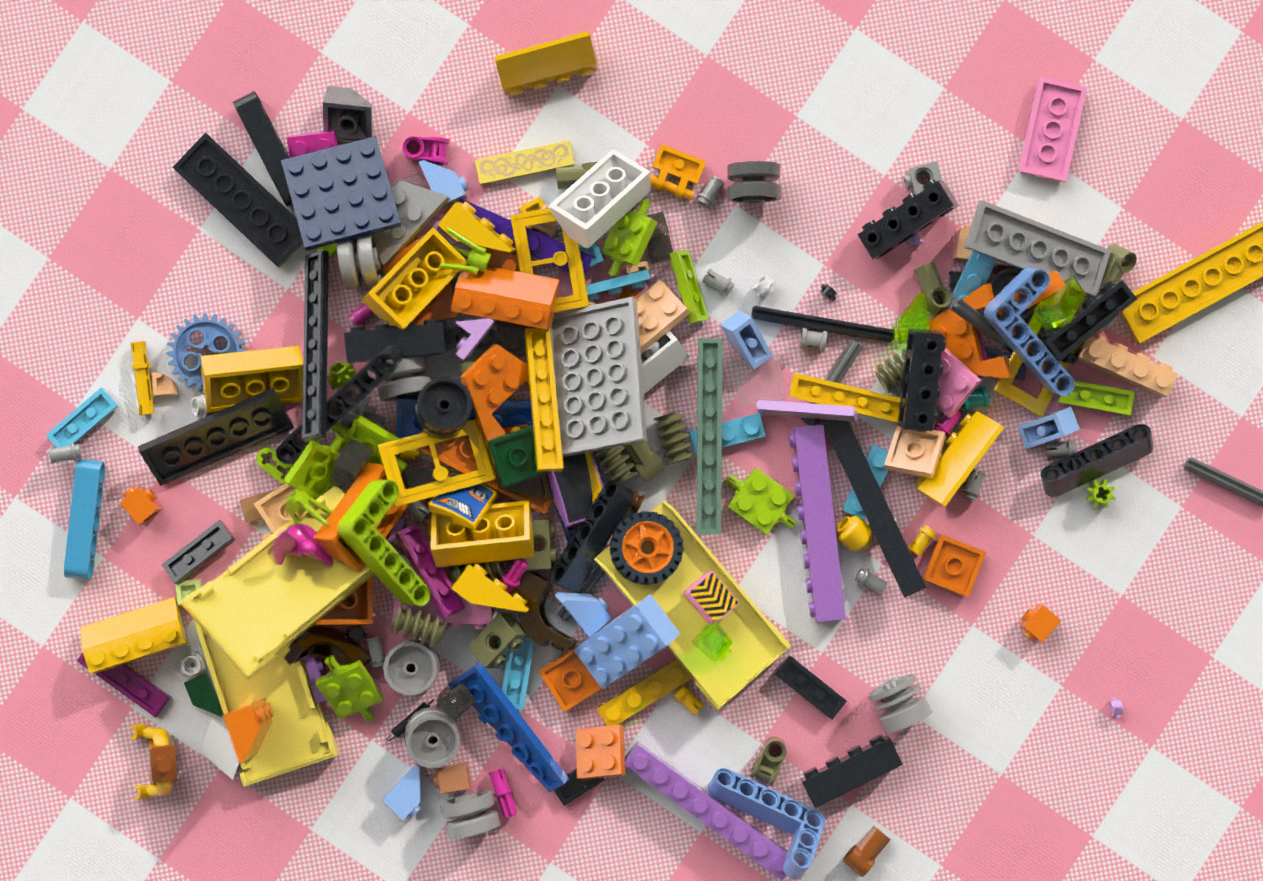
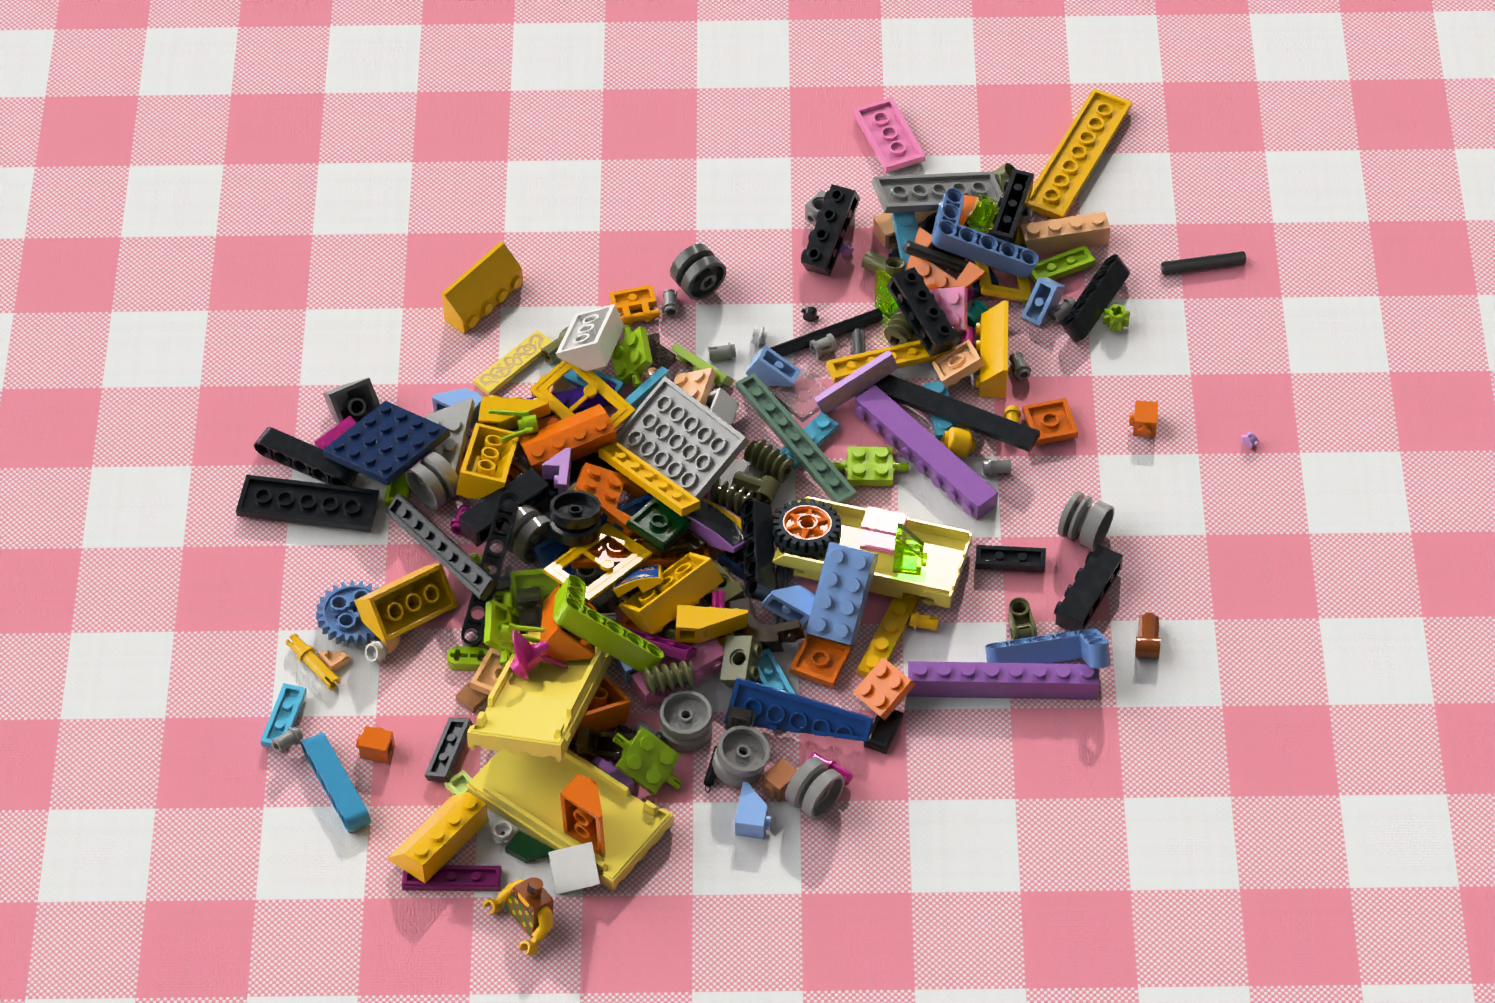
camera: 30 degrees left, 35 degrees down
(216, 437) = (404, 659): black plate -> none
(428, 149) = (422, 392): dark pink piece -> none

